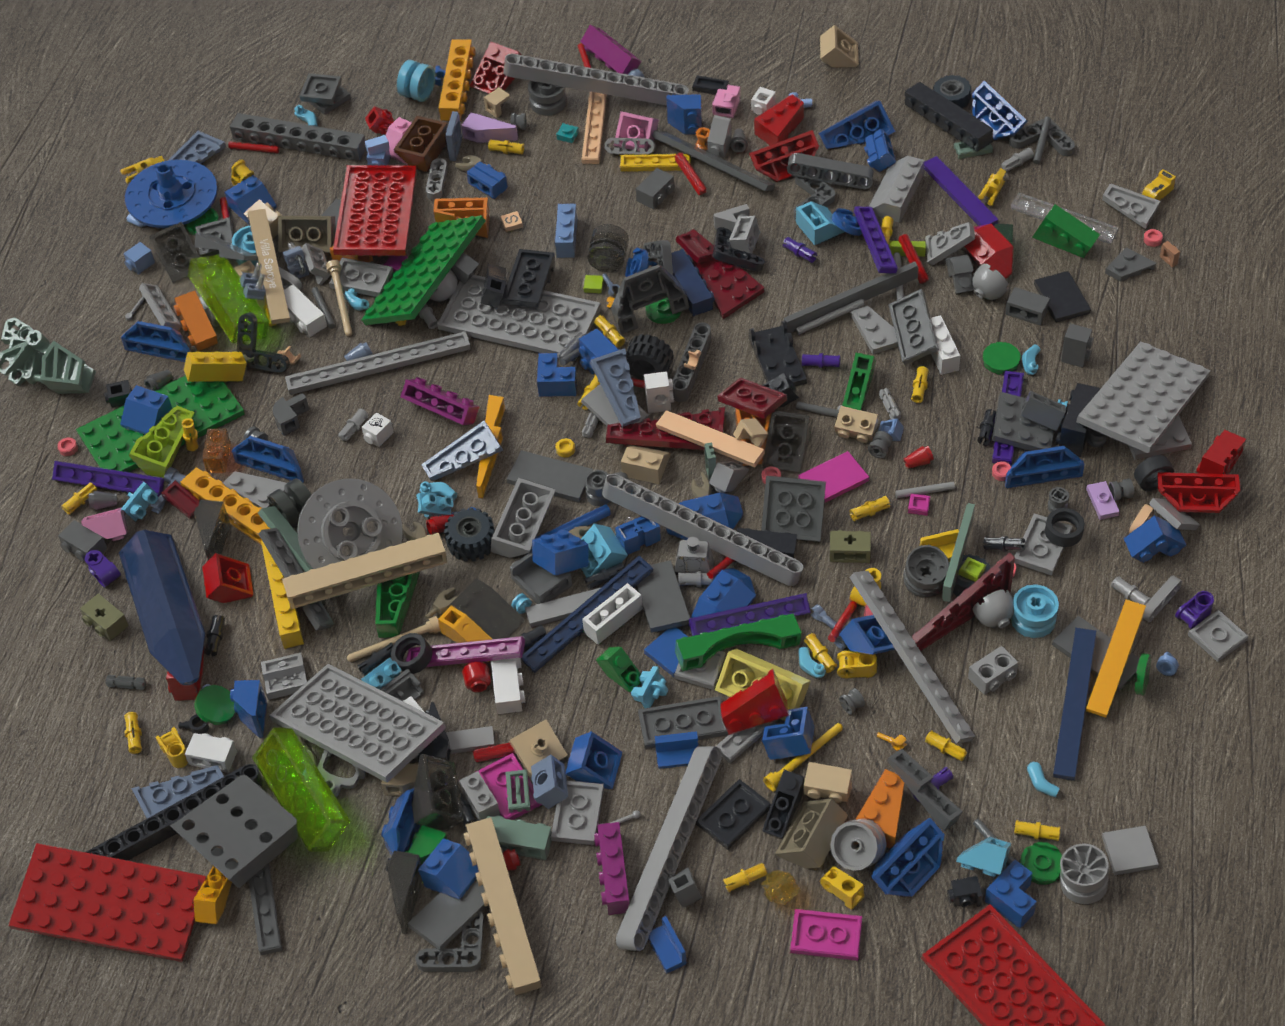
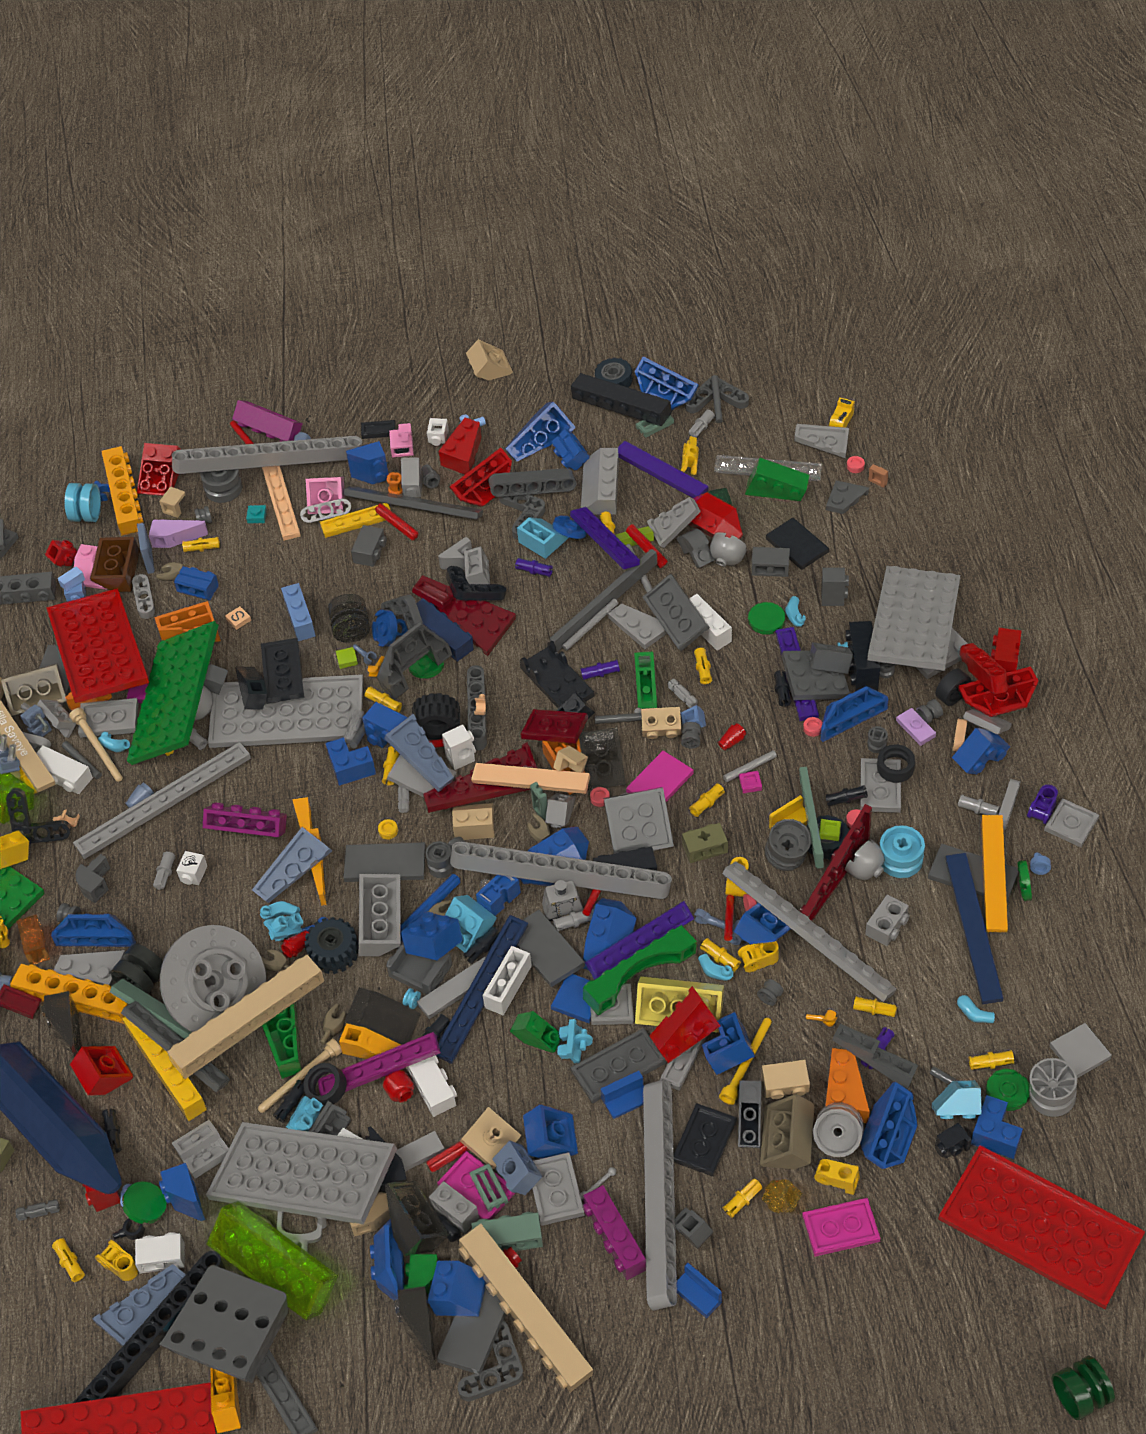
camera: 20 degrees left, 0 degrees up
(1189, 463) = (984, 668): none -> red piece

